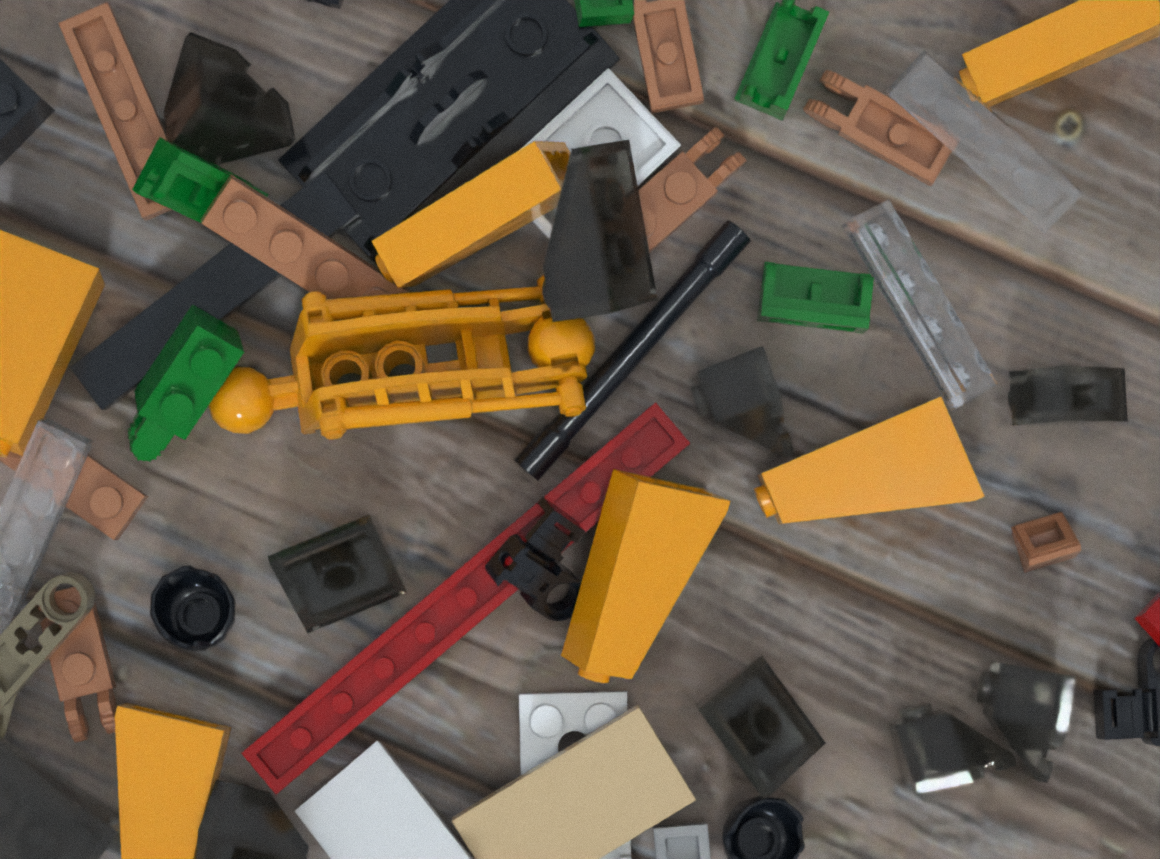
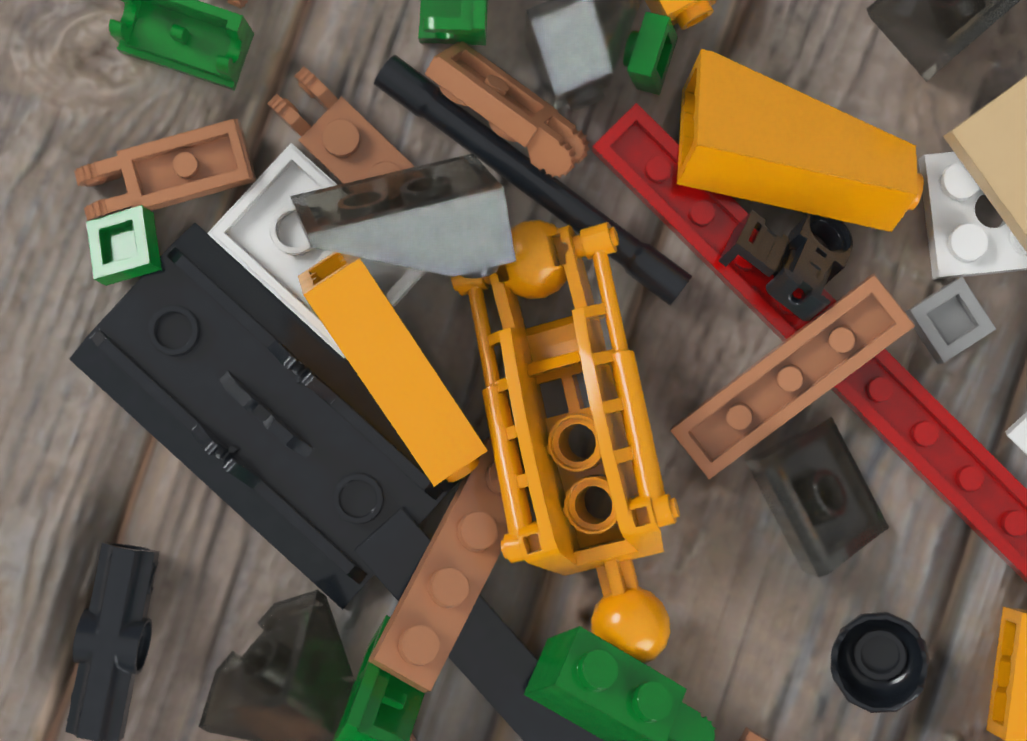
camera: 95 degrees left, 0 degrees up
(440, 554) = (792, 376): none -> nougat plate
(480, 700) = (950, 320): none -> light grey plate
(695, 334) = (510, 108): none -> nougat hinge
(733, 459) = (650, 52): none -> green plate

